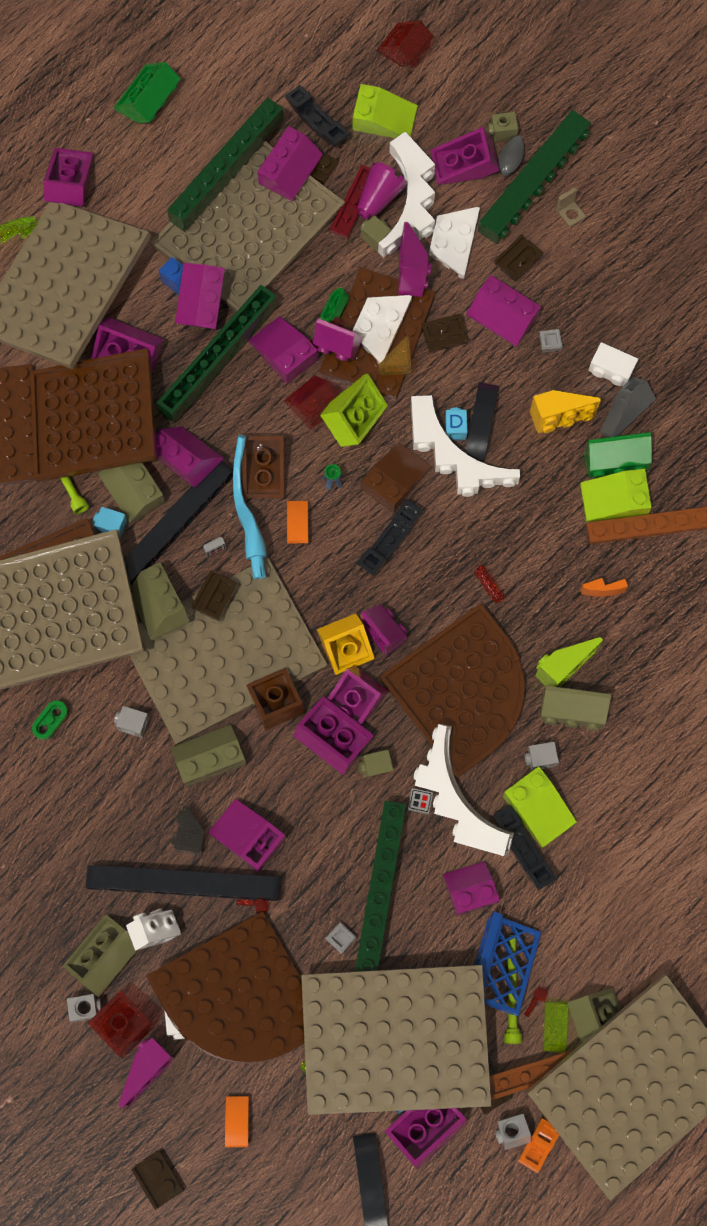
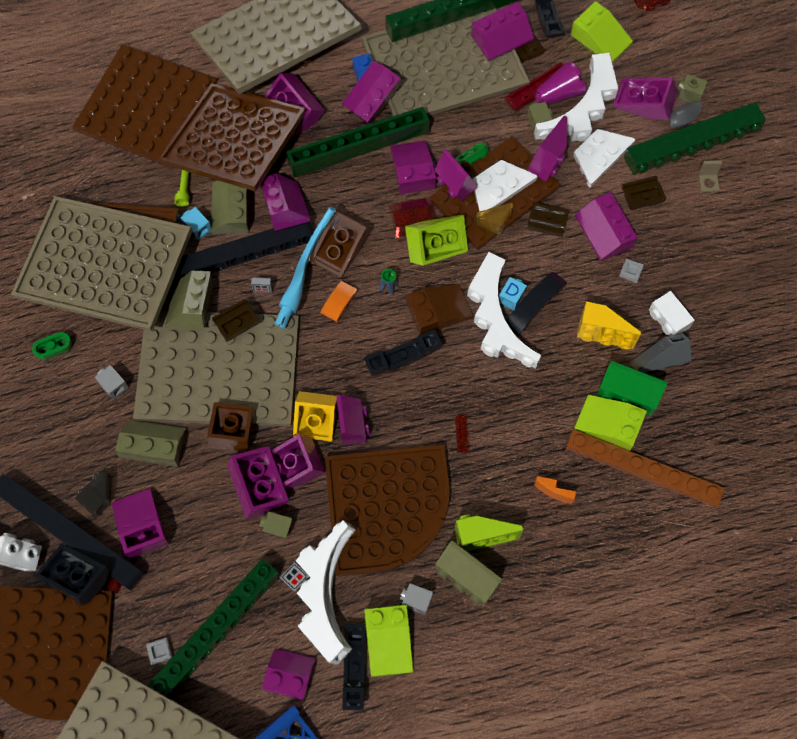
camera: 30 degrees right, 5 degrees down
(220, 915) = (73, 574): none -> black slope

